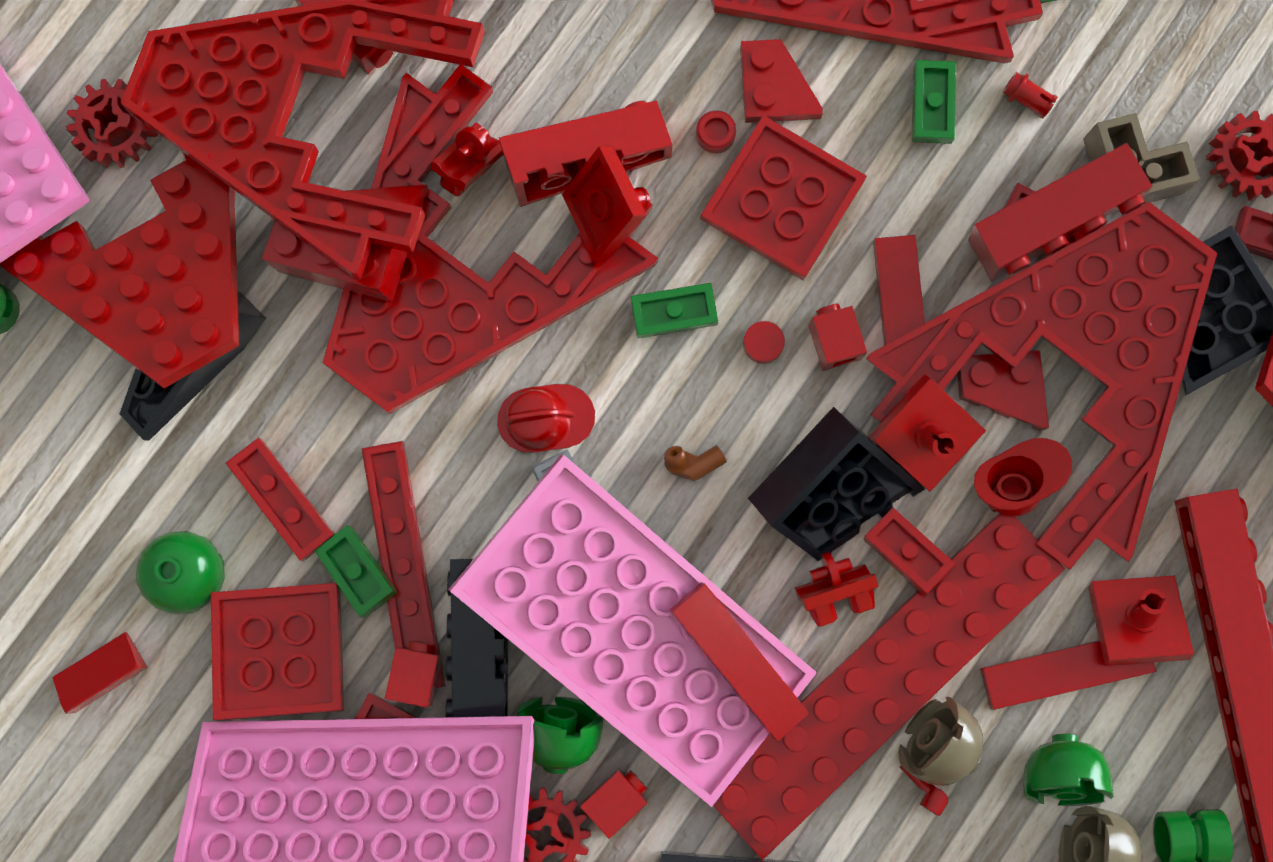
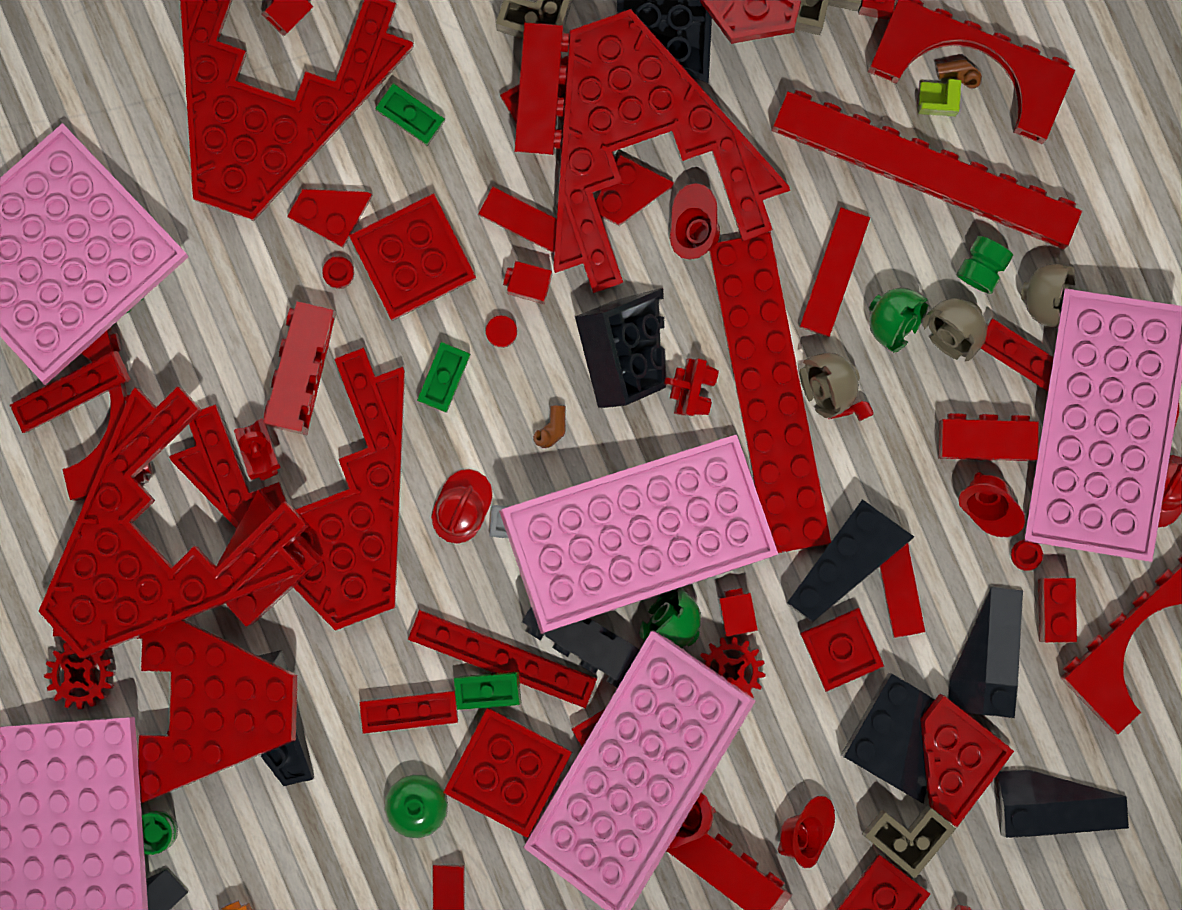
camera: 55 degrees left, 5 degrees up
(414, 675) = (578, 691): red brick -> none
(605, 203) = (349, 380): red tile -> none
(739, 661) = (698, 479): red tile -> none
(909, 552) = (697, 325): red plate -> none
(927, 433) = (628, 265): red tile -> none
(1029, 94) = (445, 47): red pin -> none
(1140, 620) = (832, 206): red tile -> none

